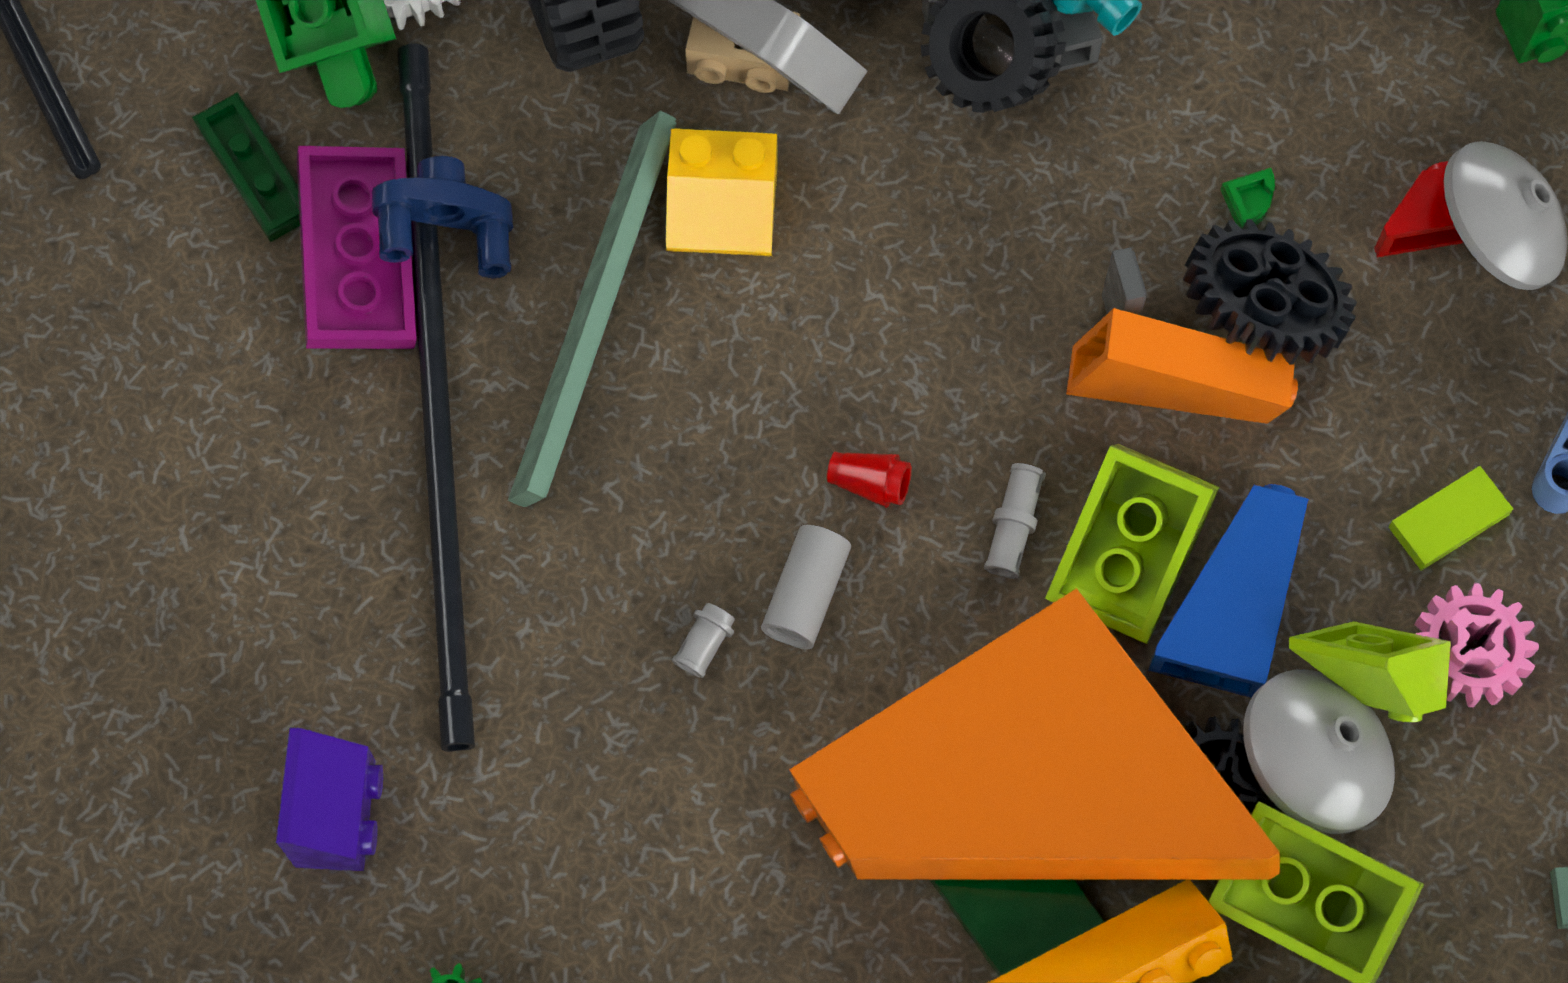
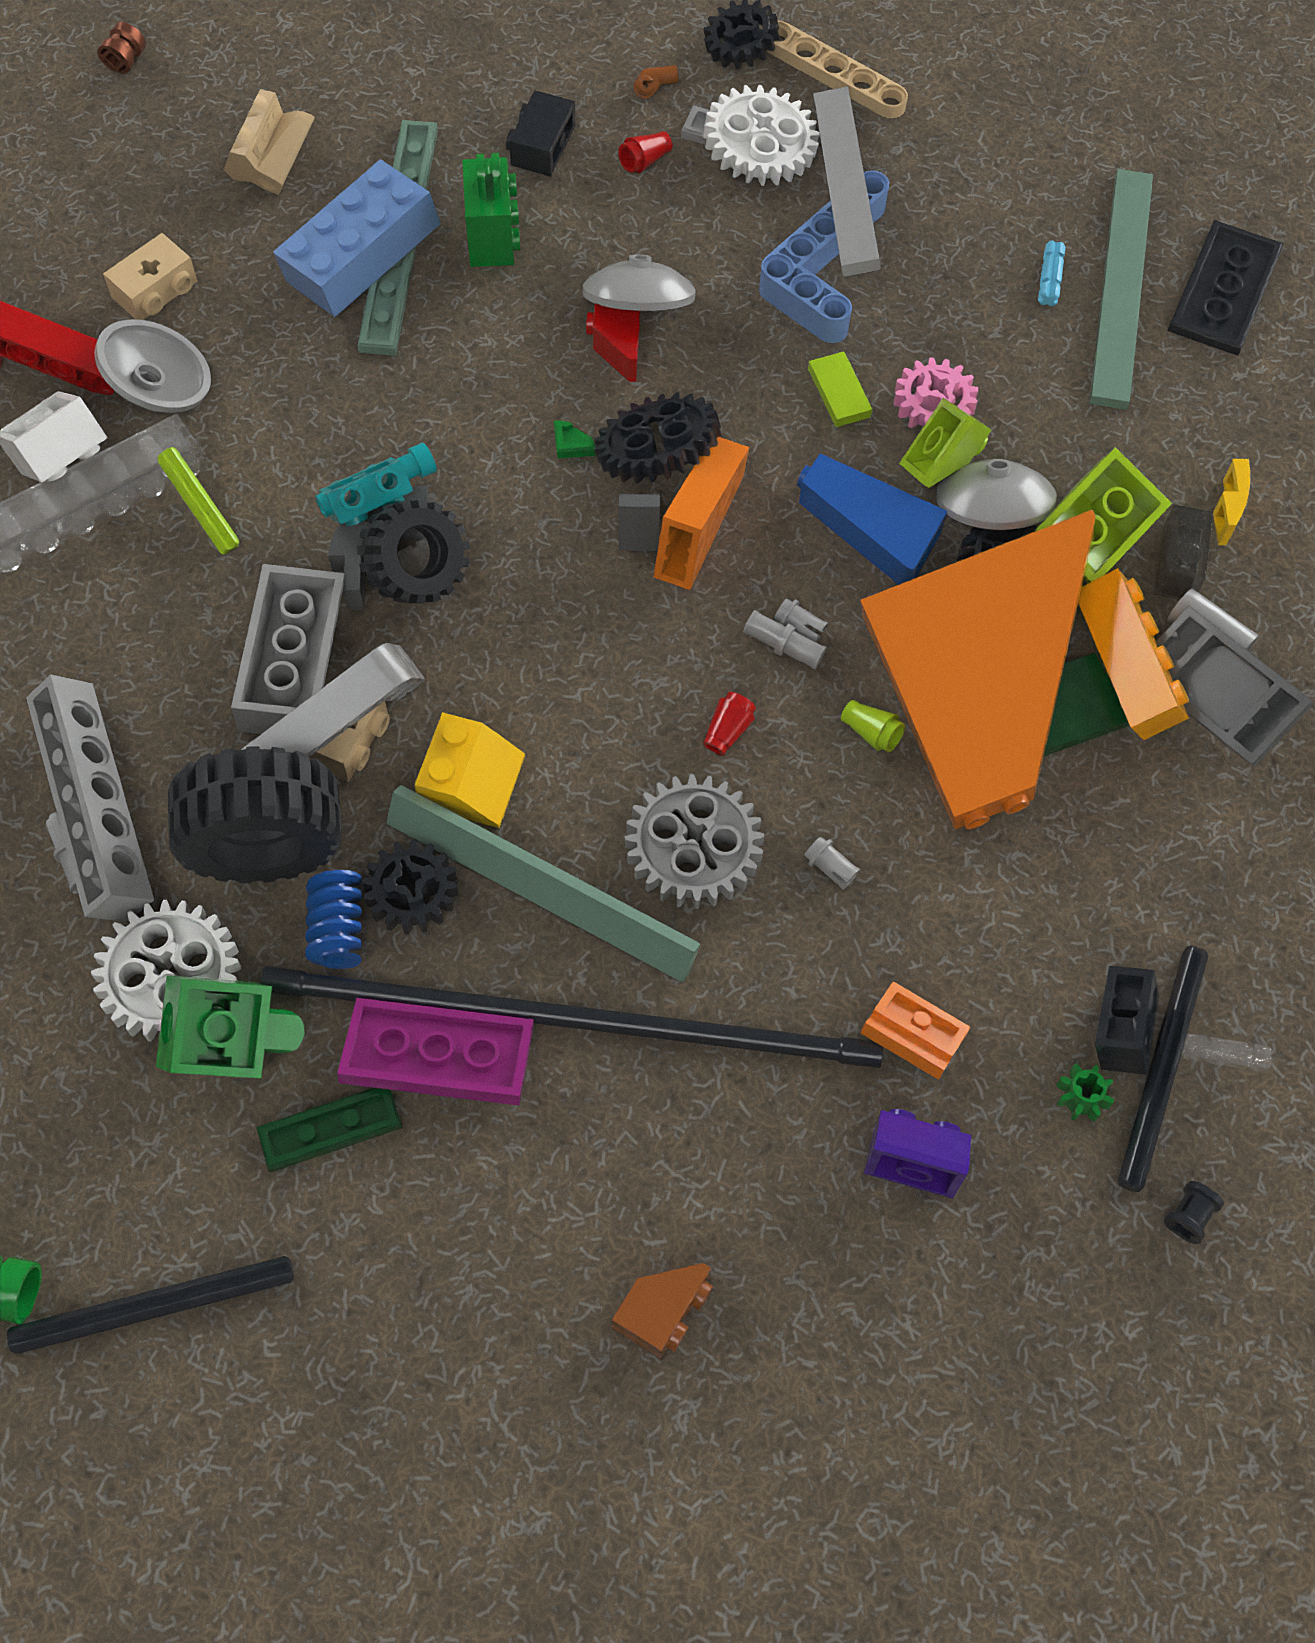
camera: 80 degrees left, 5 degrees down
(96, 551) = (659, 1304): none -> dark orange slope
(443, 199) = (419, 968): dark blue connector -> none
(492, 778) = (915, 1030): none -> orange plate
(493, 97) = (329, 919): none -> blue piece
(540, 184) = (429, 879): none -> black gear
(726, 498) = (726, 824): none -> light grey gear
(806, 586) = (807, 783): light grey pin -> none
(915, 655) = (874, 725): none -> lime cone
(1050, 535) = (792, 614): none -> light grey pin
(1133, 540) = (817, 565): lime slope -> none

